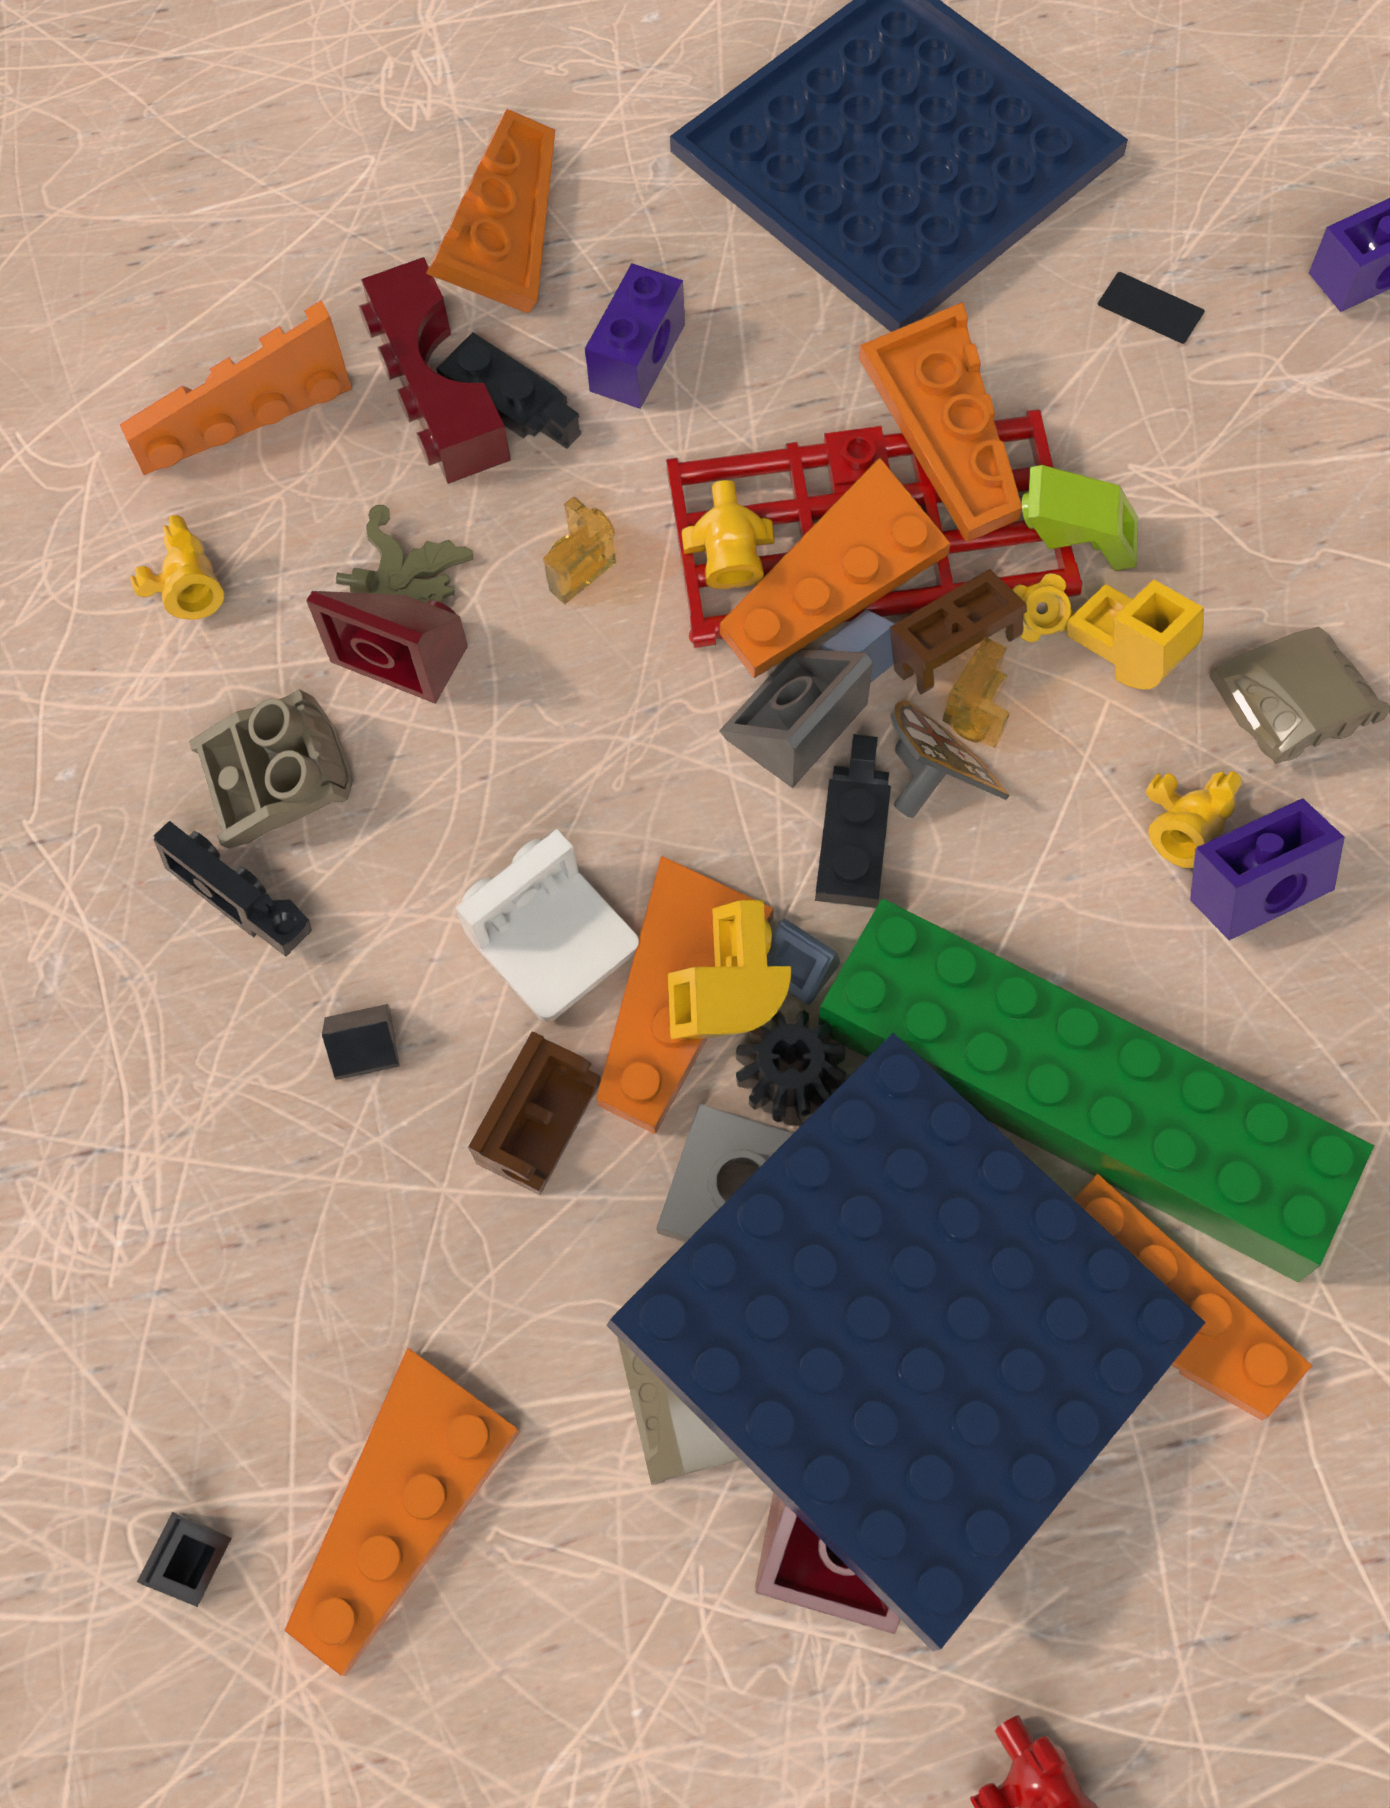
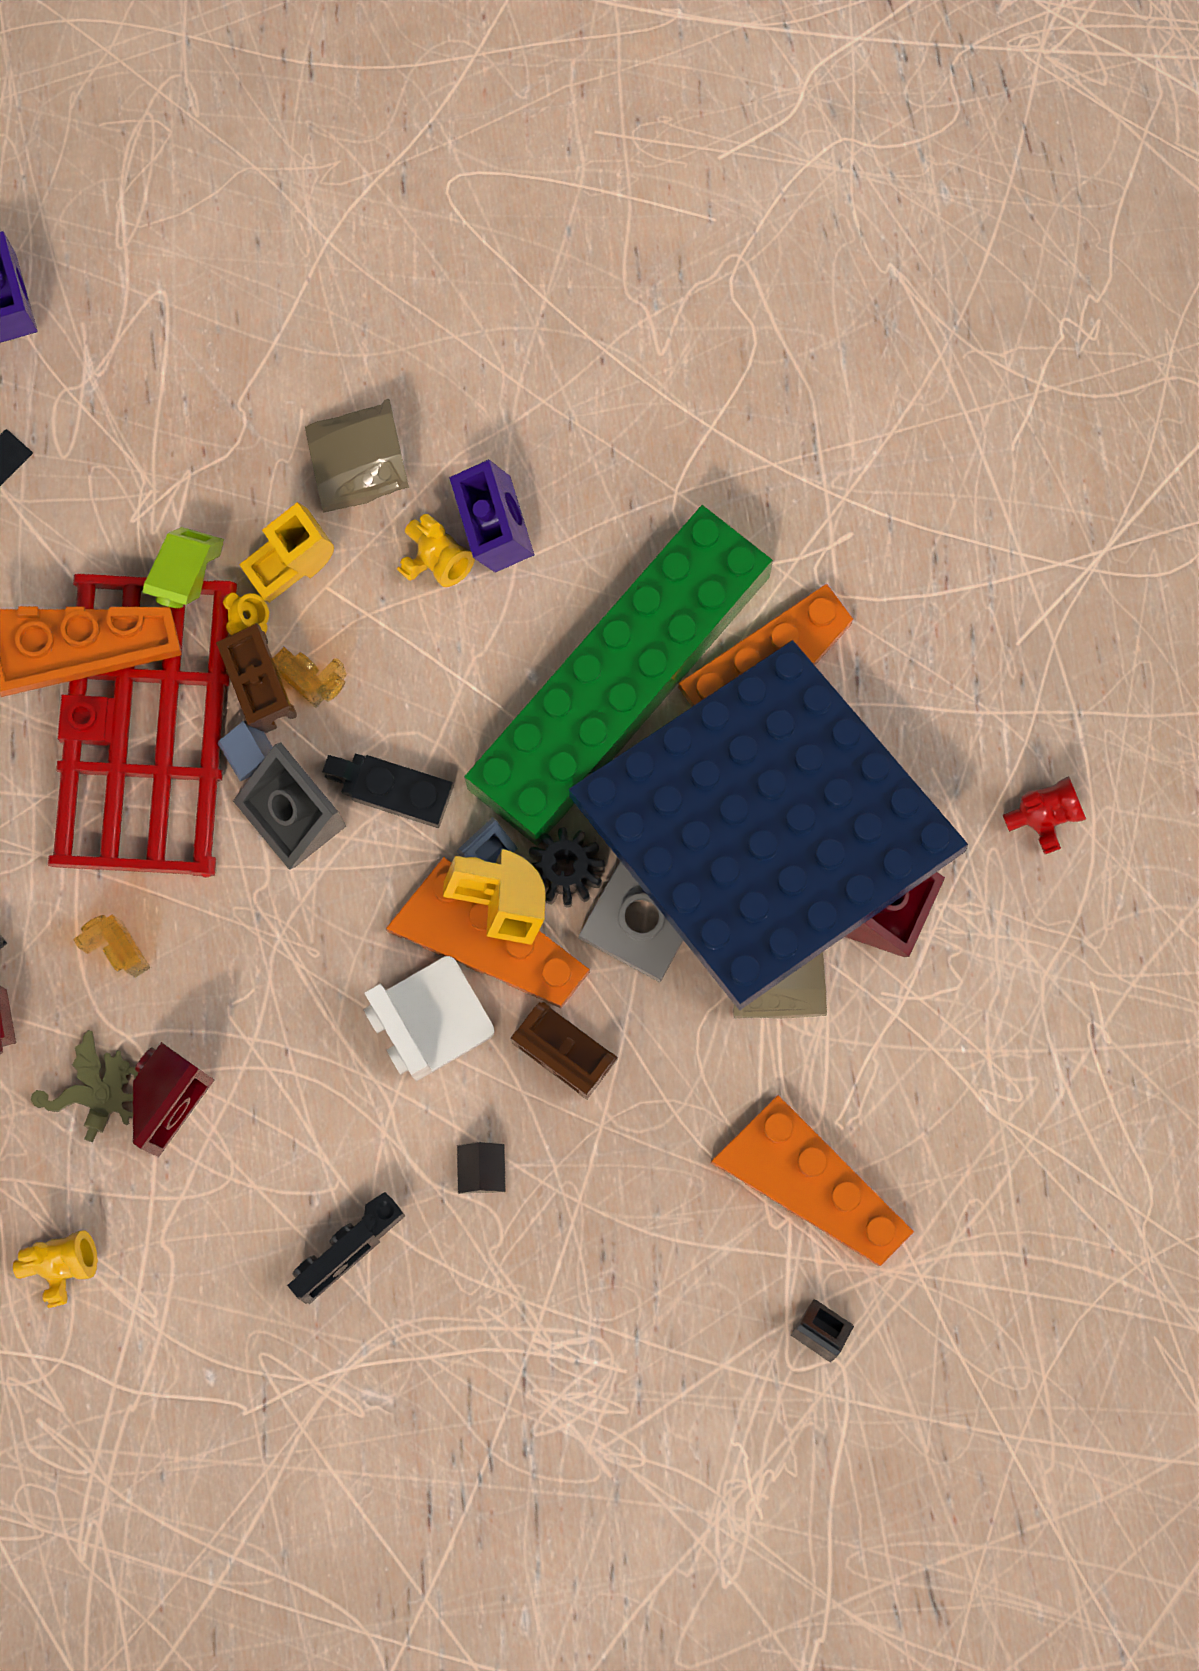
camera: 80 degrees left, 10 degrees up
(272, 766) = (250, 1207): dark tan slope -> none
(729, 539) = (141, 827): yellow piece -> none
(839, 567) = (176, 744): orange wing -> none
(930, 755) = (352, 717): shield -> none

